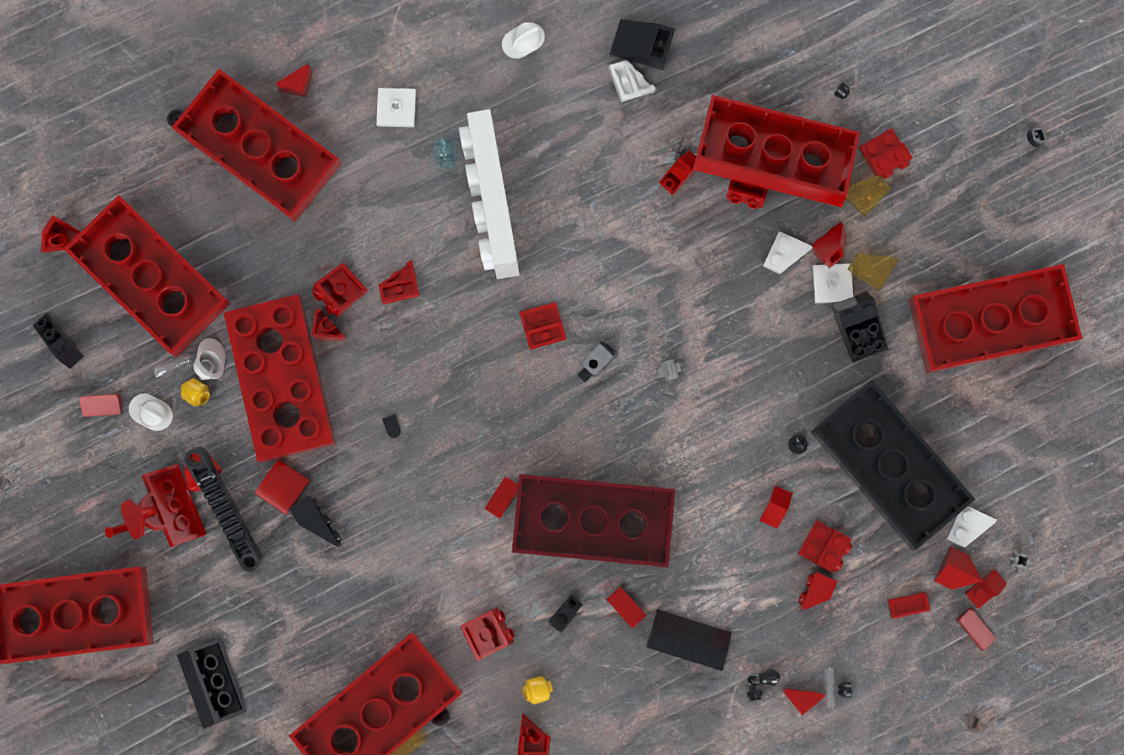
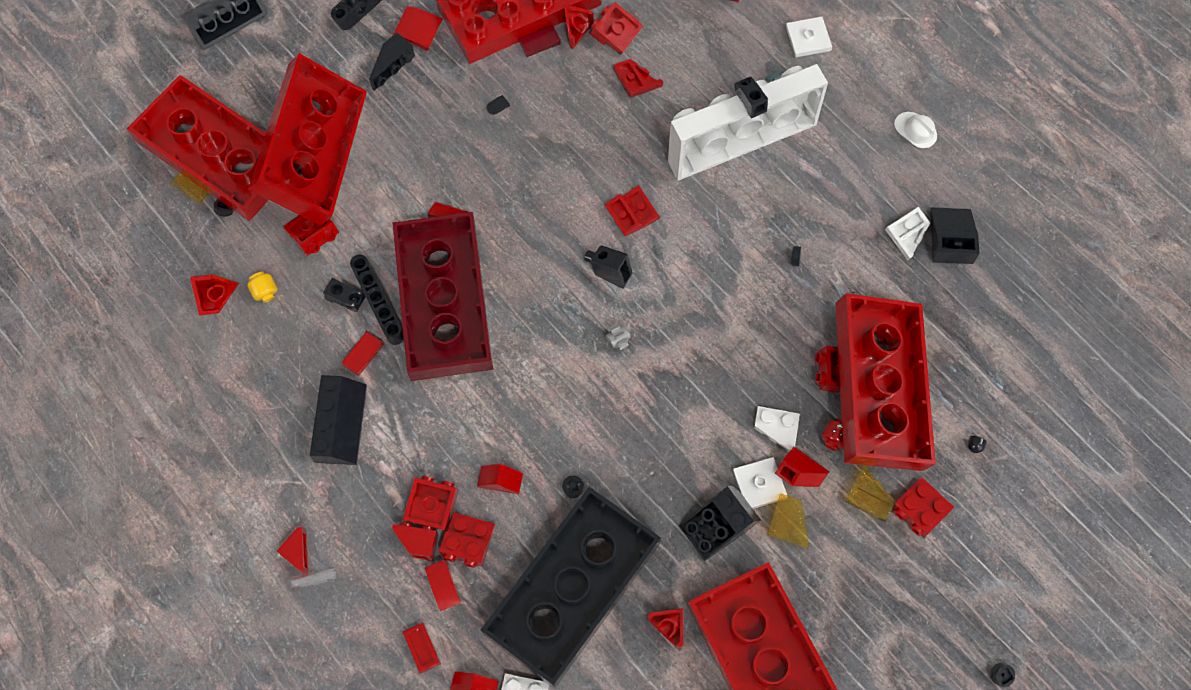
camera: 75 degrees right, 15 degrees down
(330, 368) = (539, 41): none -> dark red tile
(403, 616) = (309, 138): none -> red plate
(490, 184) = (751, 96): none -> black leg
(585, 577) = (380, 307): none -> black beam
(629, 189) = (796, 255): none -> black tile
(679, 173) = (824, 298): red slope -> none
(769, 677) = (314, 513): black piece -> none
(787, 571) = (430, 503): none -> red plate
(806, 207) = (833, 435): none -> red head
(846, 689) = (314, 596): black hinge -> none
(861, 576) = (442, 585): none -> red slope
(939, 390) = (669, 624): none -> red slope

